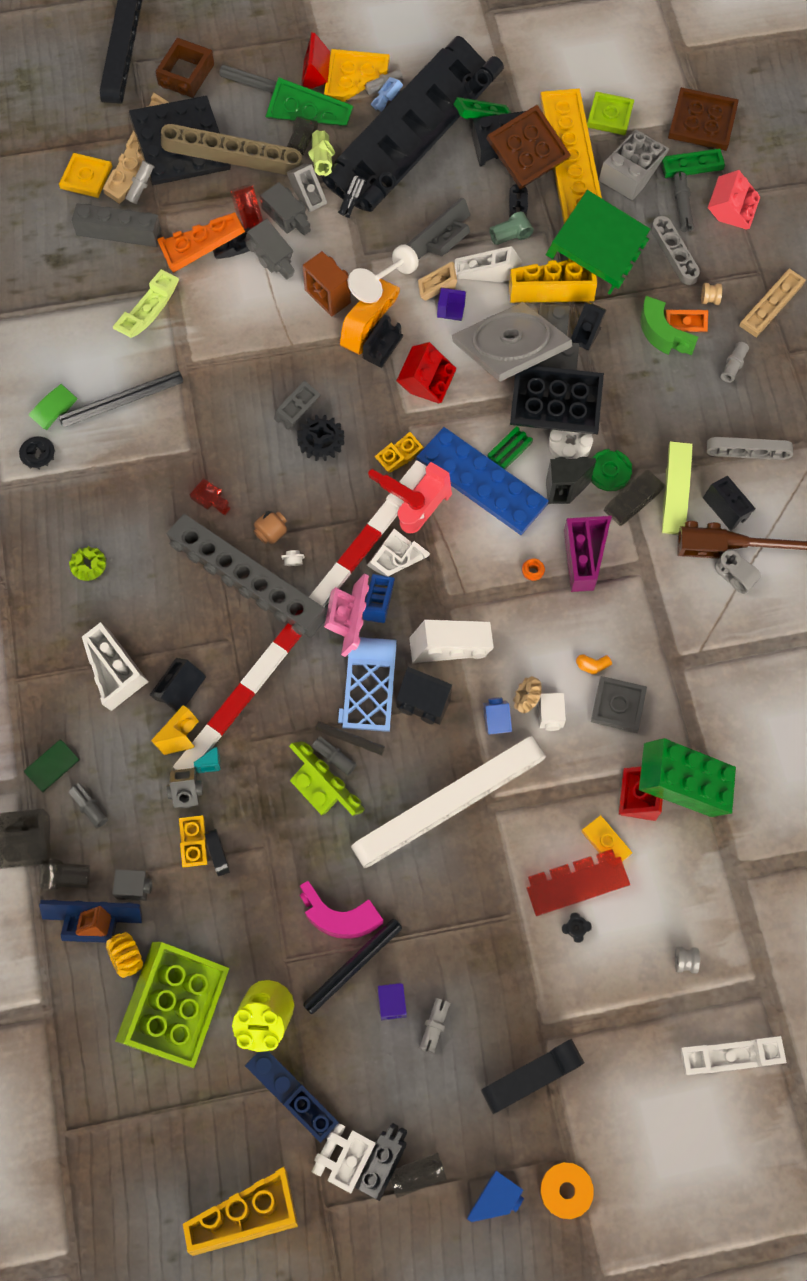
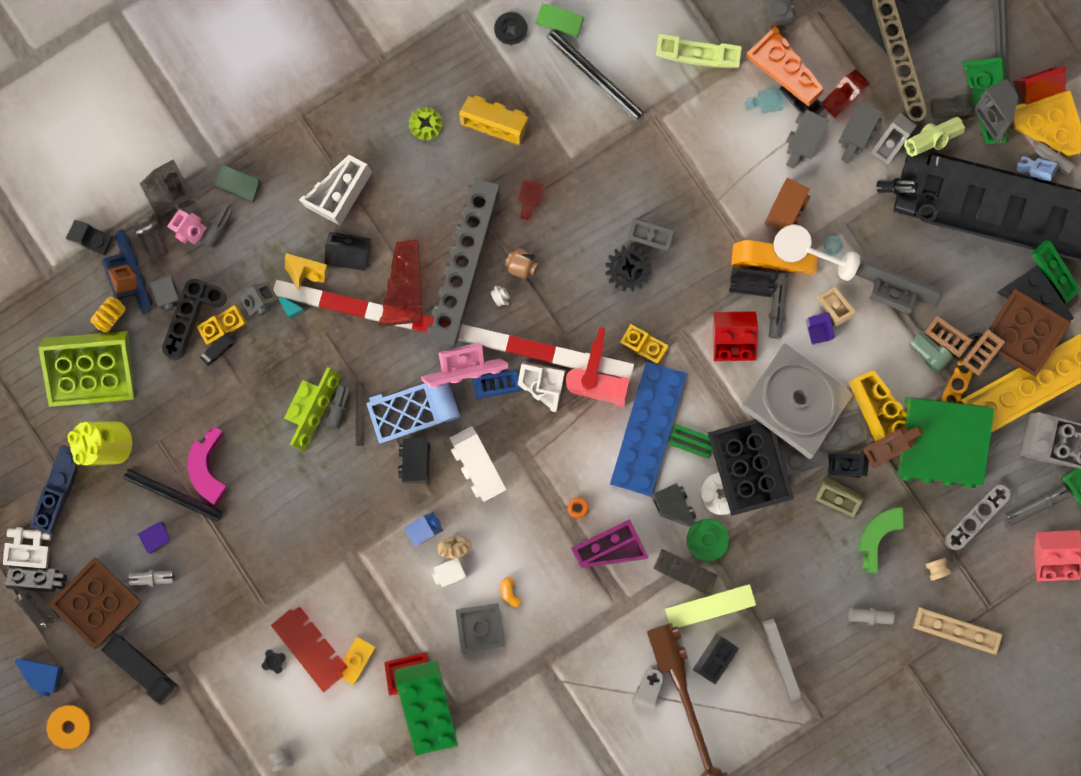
camera: 70 degrees right, 15 degrees up
(27, 948) = (89, 237): none -> black slope
(72, 832) = (187, 227): none -> bright pink brick
(118, 497) = (493, 119): none -> yellow slope
(171, 873) = (189, 320): none -> black beam
(221, 270) = (767, 100): none -> clear light blue plate
(245, 642) = (403, 294): none -> clear red wing
(324, 95) = (997, 108): none -> dark grey slope
(379, 263) = (832, 238): none -> clear light blue bush
(421, 333) = (778, 305): none -> dark grey pin
(437, 1101) = (95, 603): none -> reddish brown plate
(448, 802) = (336, 518): white beam -> none
(488, 266) = (877, 345): white slope -> none
(493, 209) = (939, 322): none -> medium nougat slope
(530, 197) = (978, 370): none -> medium nougat slope
(546, 214) = (950, 391): none -> light orange piece
(589, 273) = (892, 445): none -> reddish brown hinge
(613, 348) = (839, 497): none -> olive slope
(688, 320) = (901, 554): orange slope -> none

